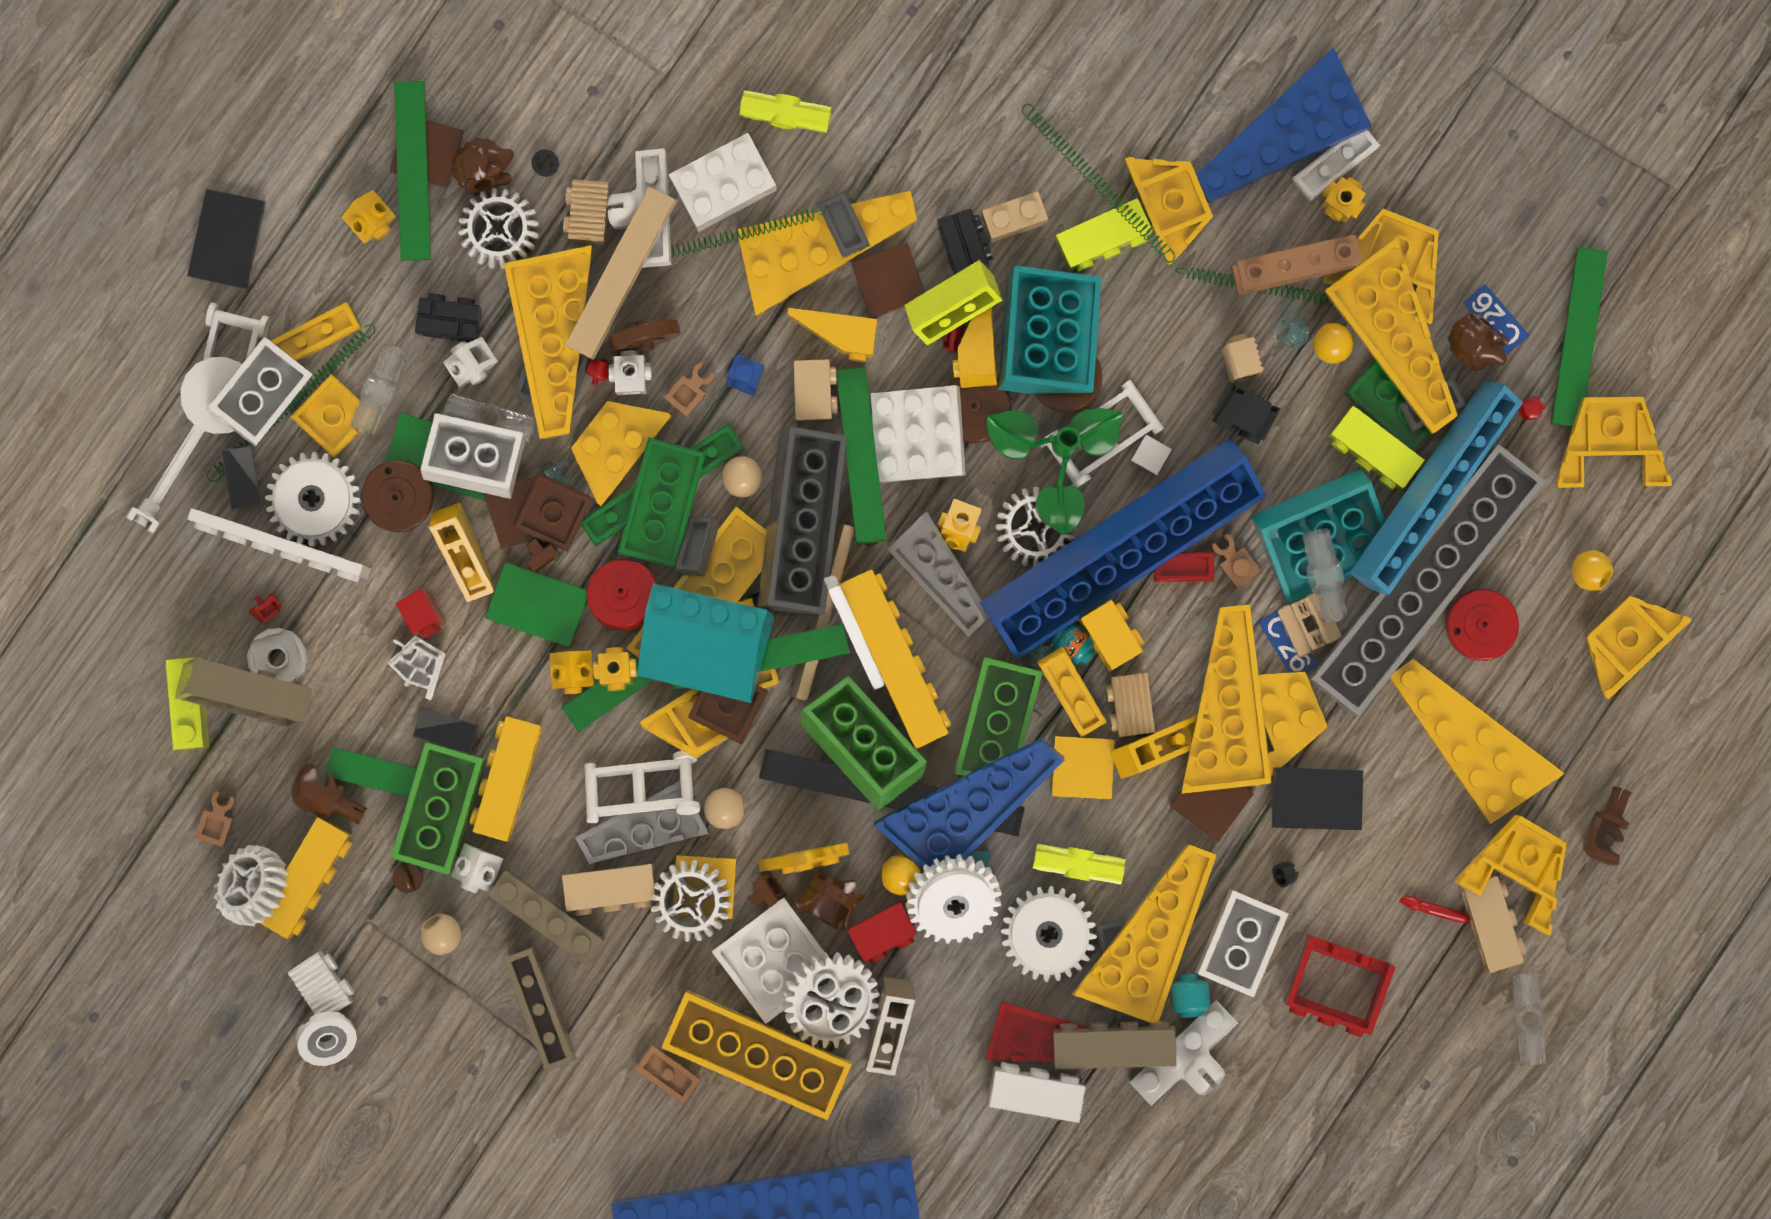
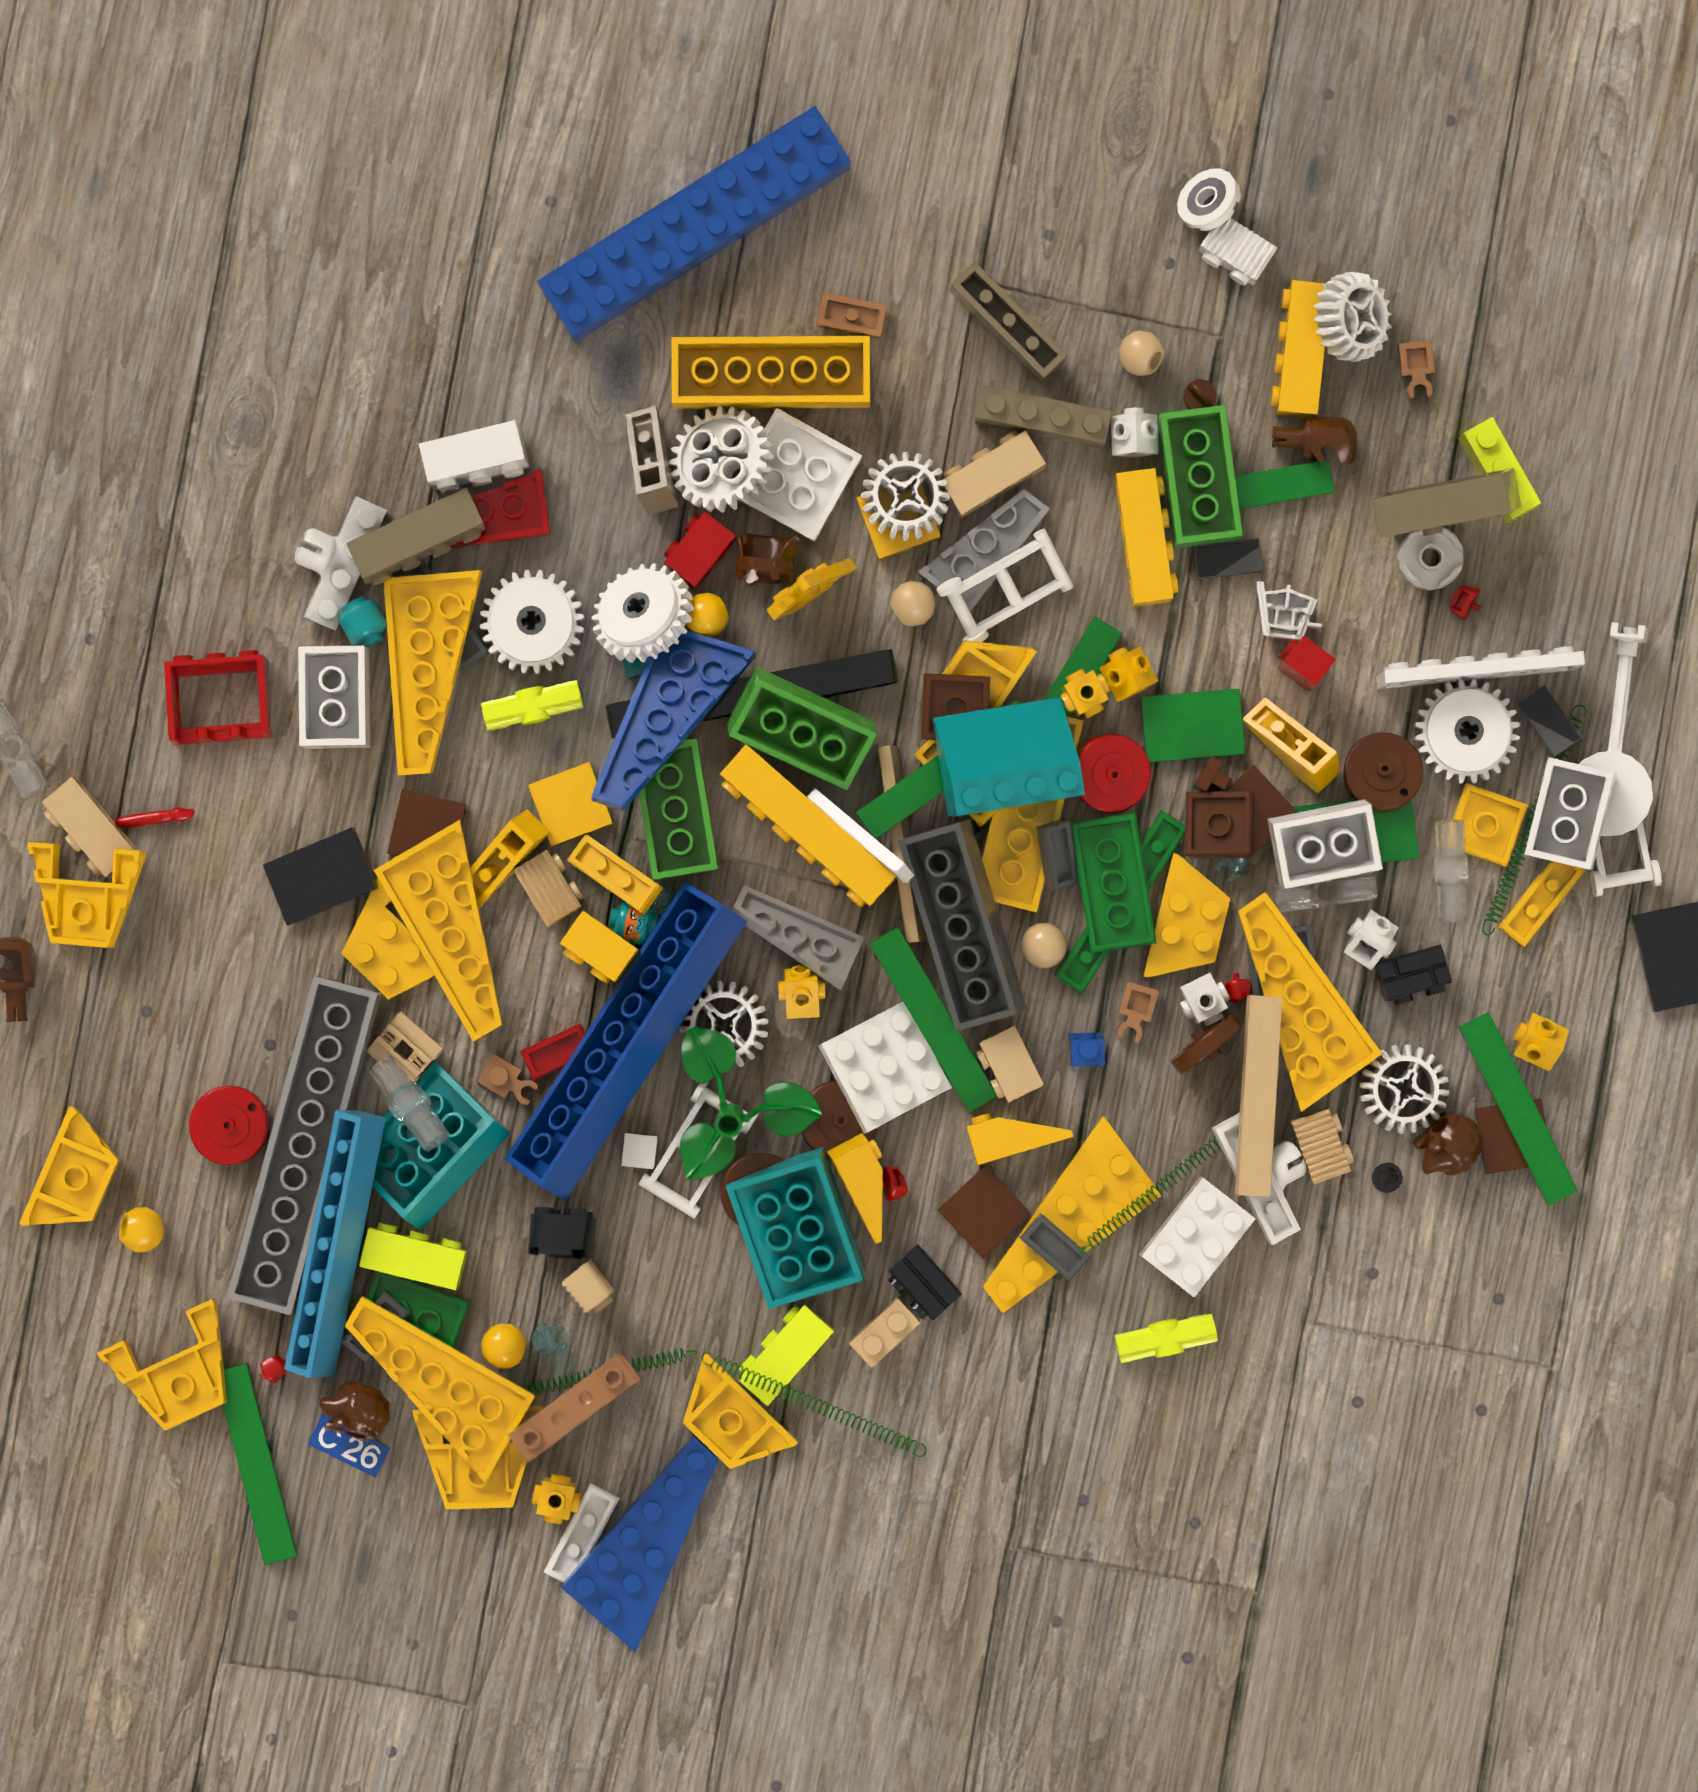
camera: 160 degrees right, 0 degrees up
(767, 890) = (833, 540): reddish brown tile -> none
(953, 302) = (907, 1215): neon yellow brick -> none
(1281, 643) = (433, 1025): blue sticker -> none
(1285, 874) = (320, 786): black hinge -> none
(1483, 755) = (172, 995): yellow wing -> none

